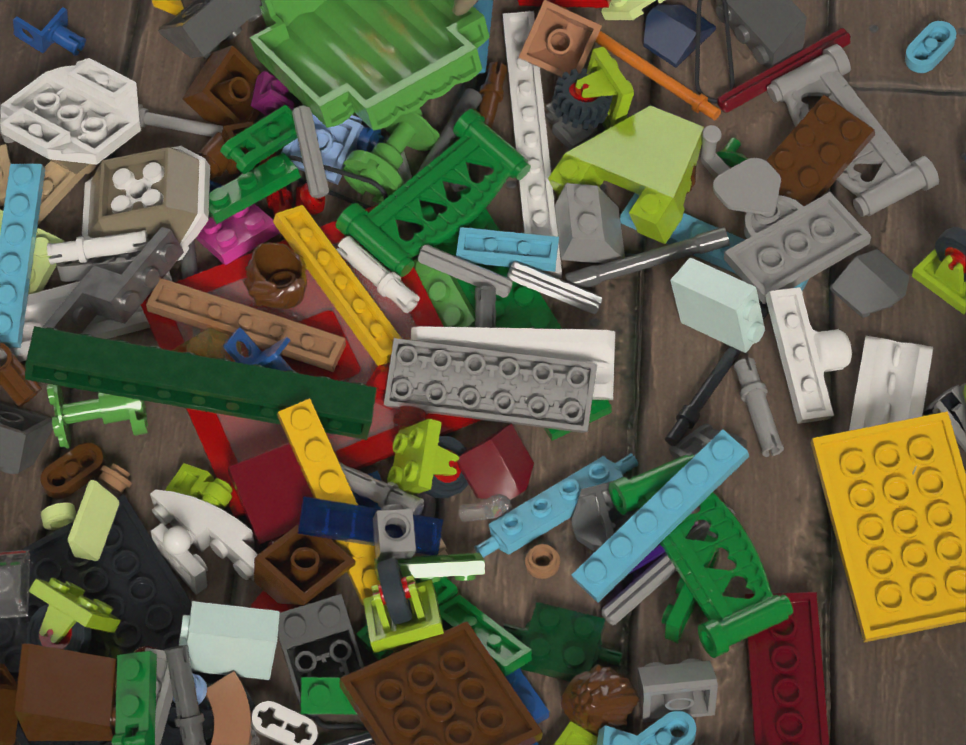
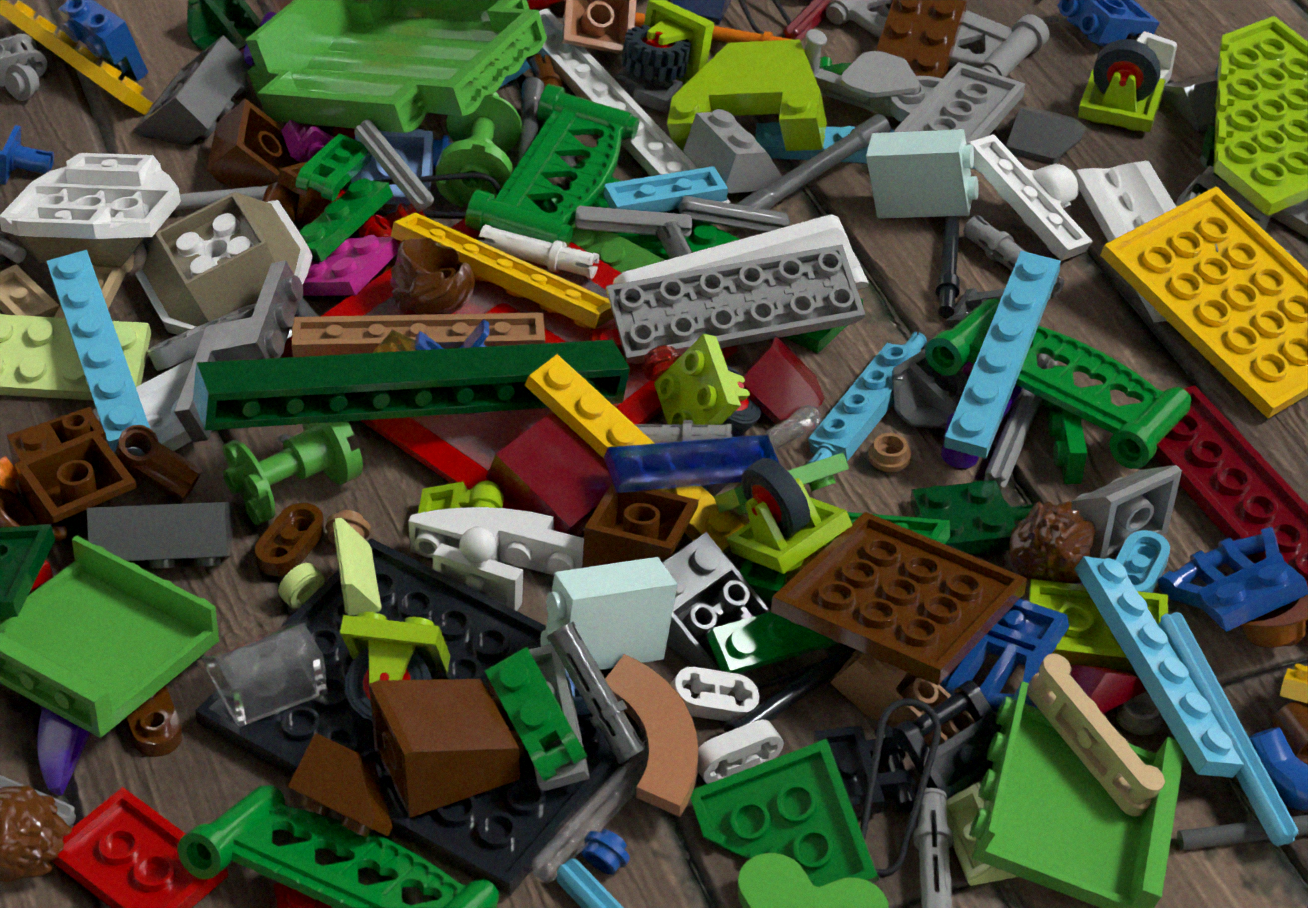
camera: 30 degrees left, 15 degrees down
(83, 248) = (182, 319): white pin -> none
(389, 547) = (730, 449): light grey brick -> none

